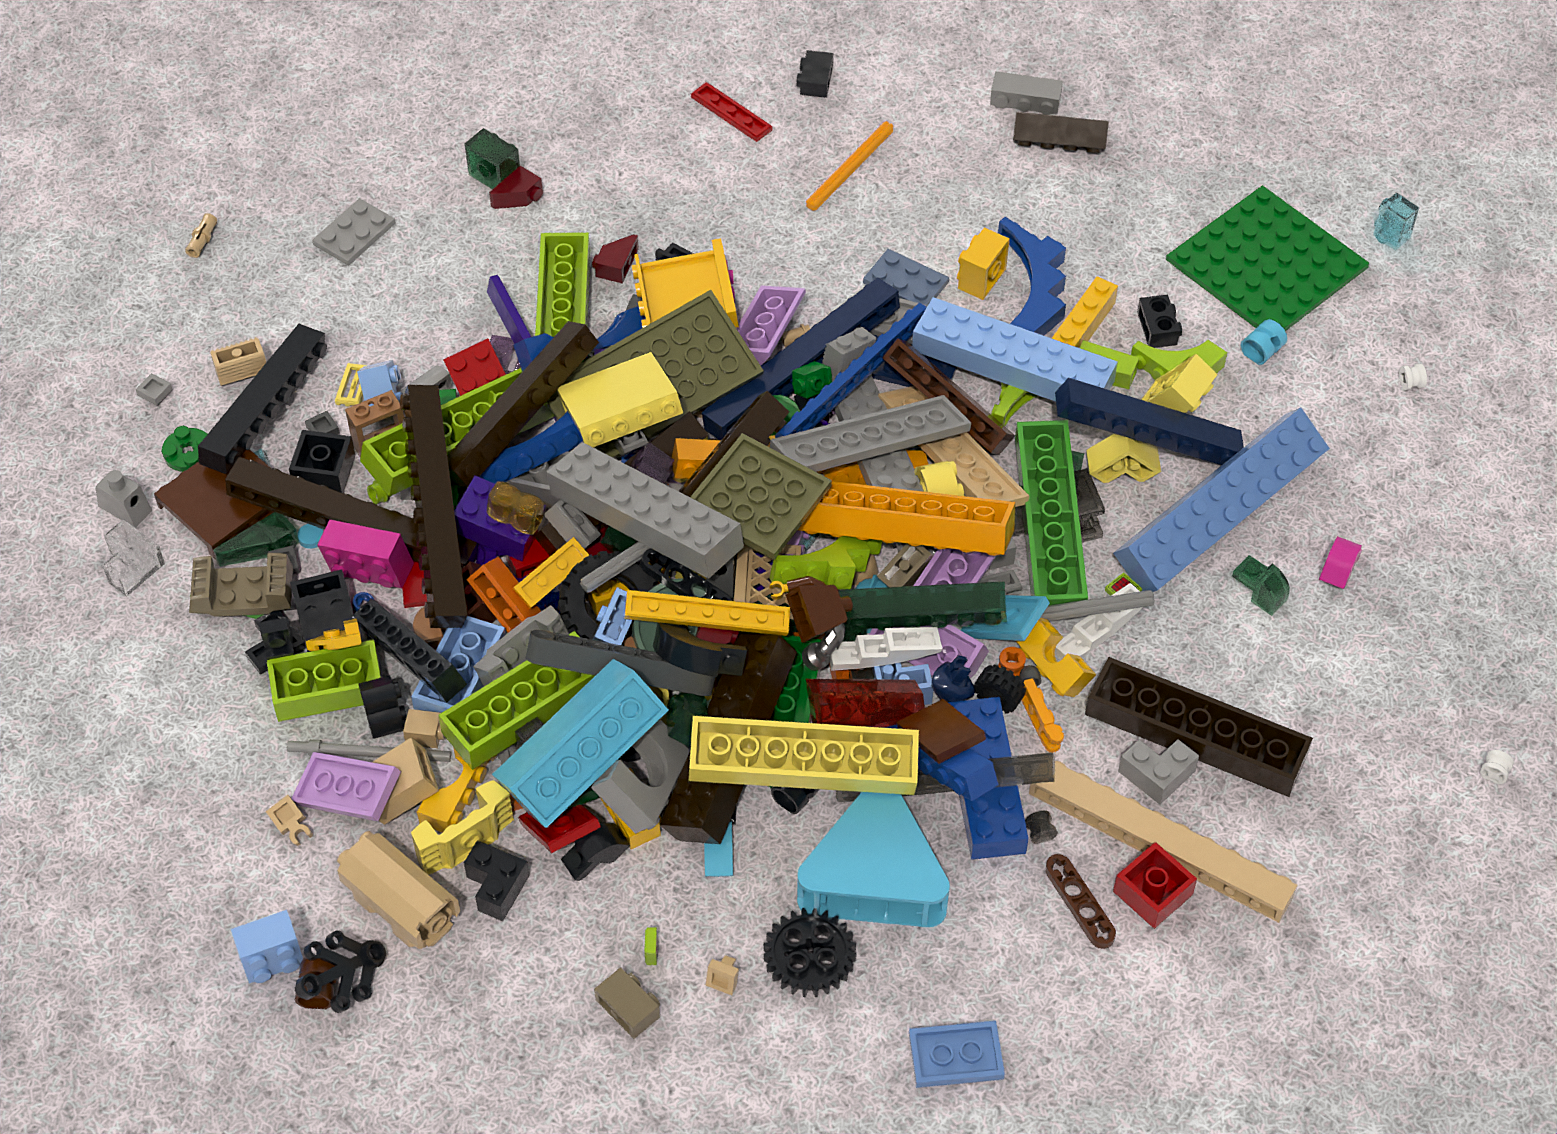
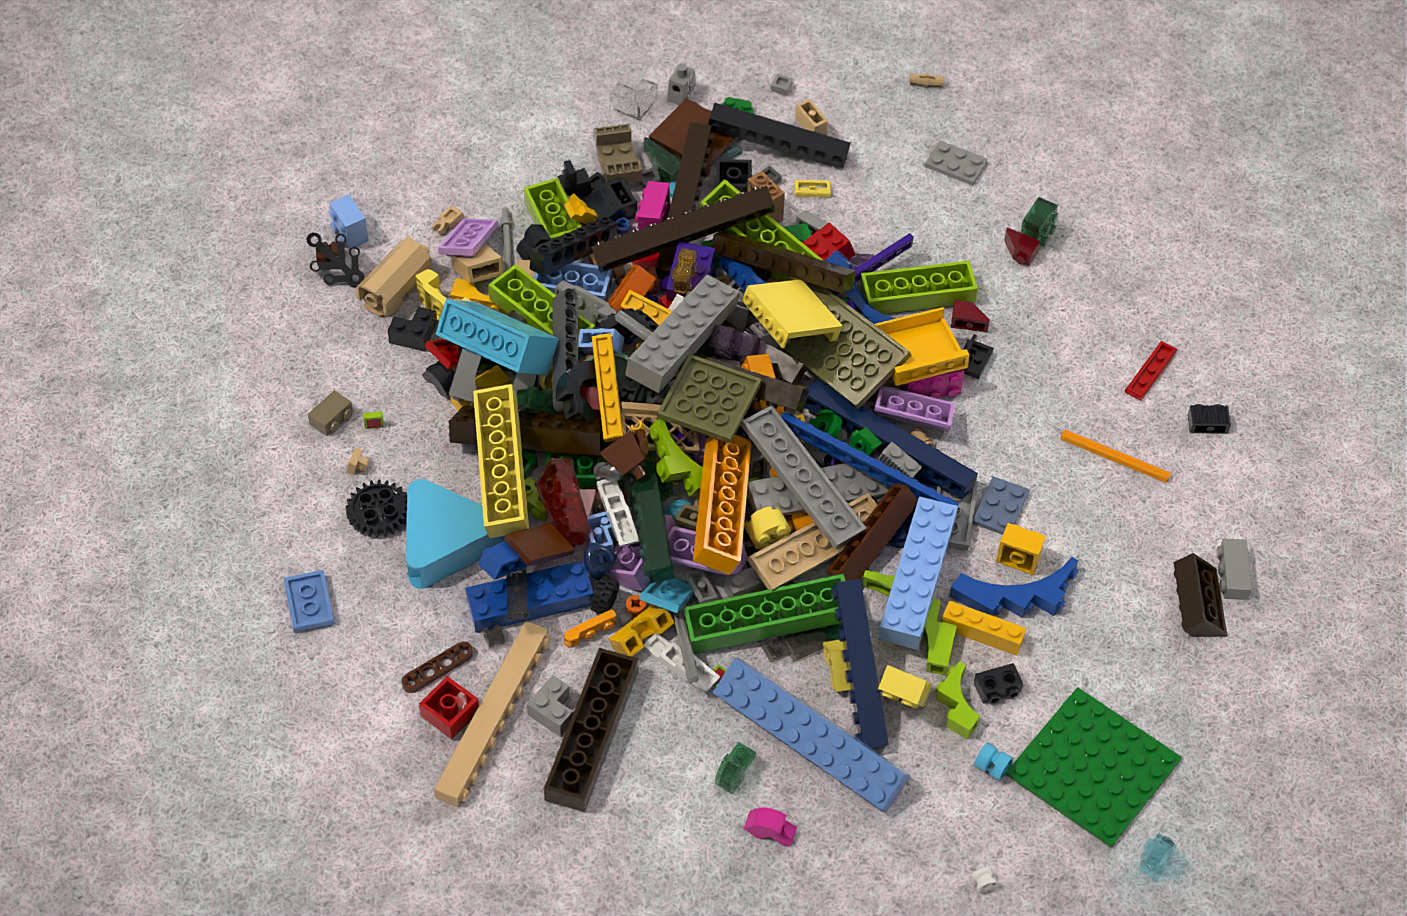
camera: 80 degrees right, 0 degrees up
(378, 379) = (805, 194): light blue brick -> none
(719, 856) = (445, 450): medium azure slope -> none

